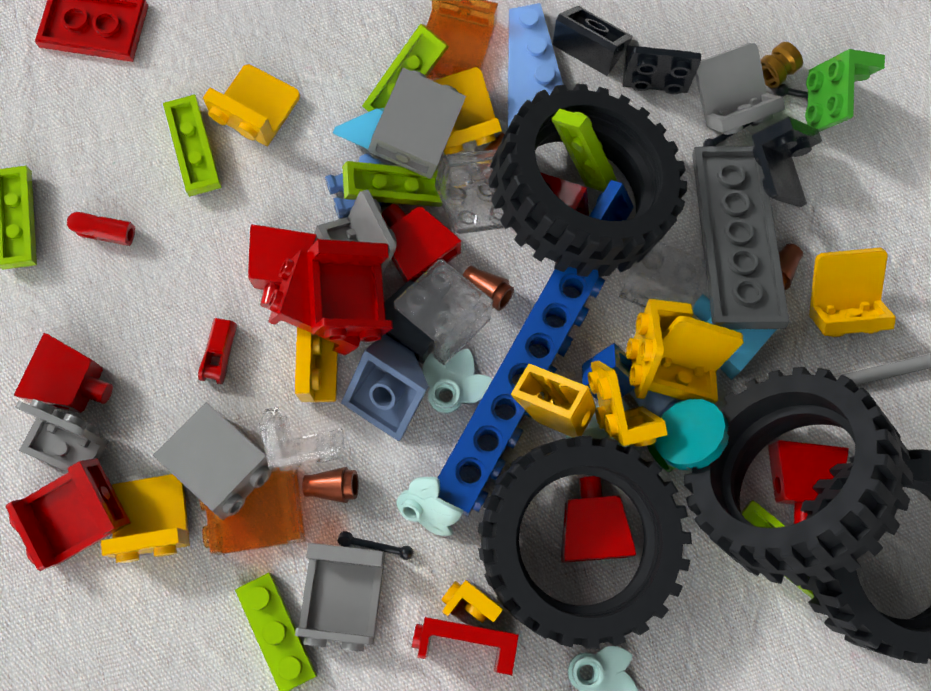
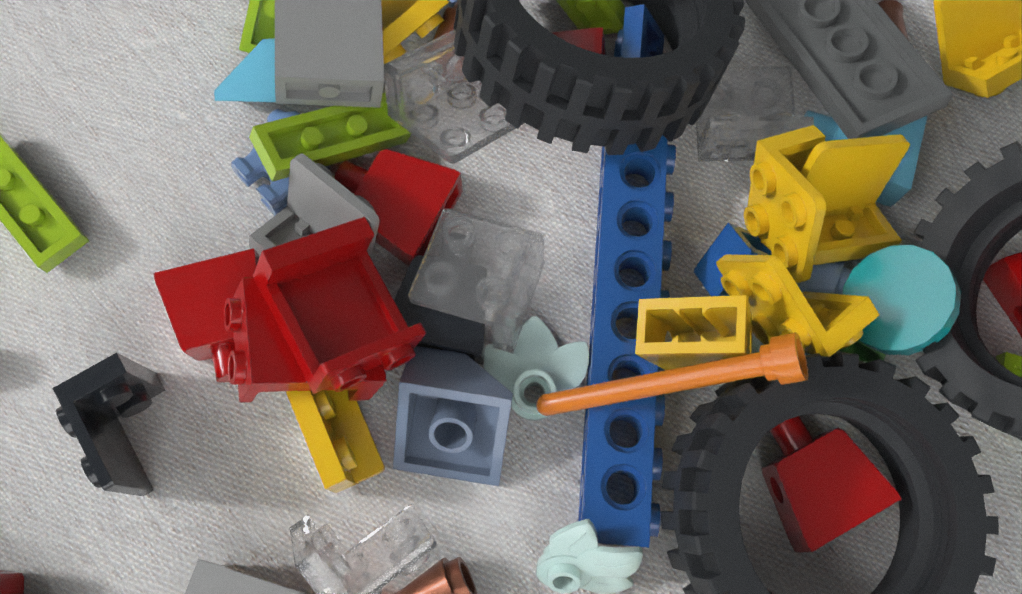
camera: 25 degrees left, 0 degrees up
(183, 287) = (91, 413): none -> black bracket
(218, 346) = (182, 465): red bar -> none
(253, 104) = (83, 108): yellow bracket -> none
(492, 285) = (527, 214): copper cone -> none
(588, 432) = (779, 360): none -> orange piece

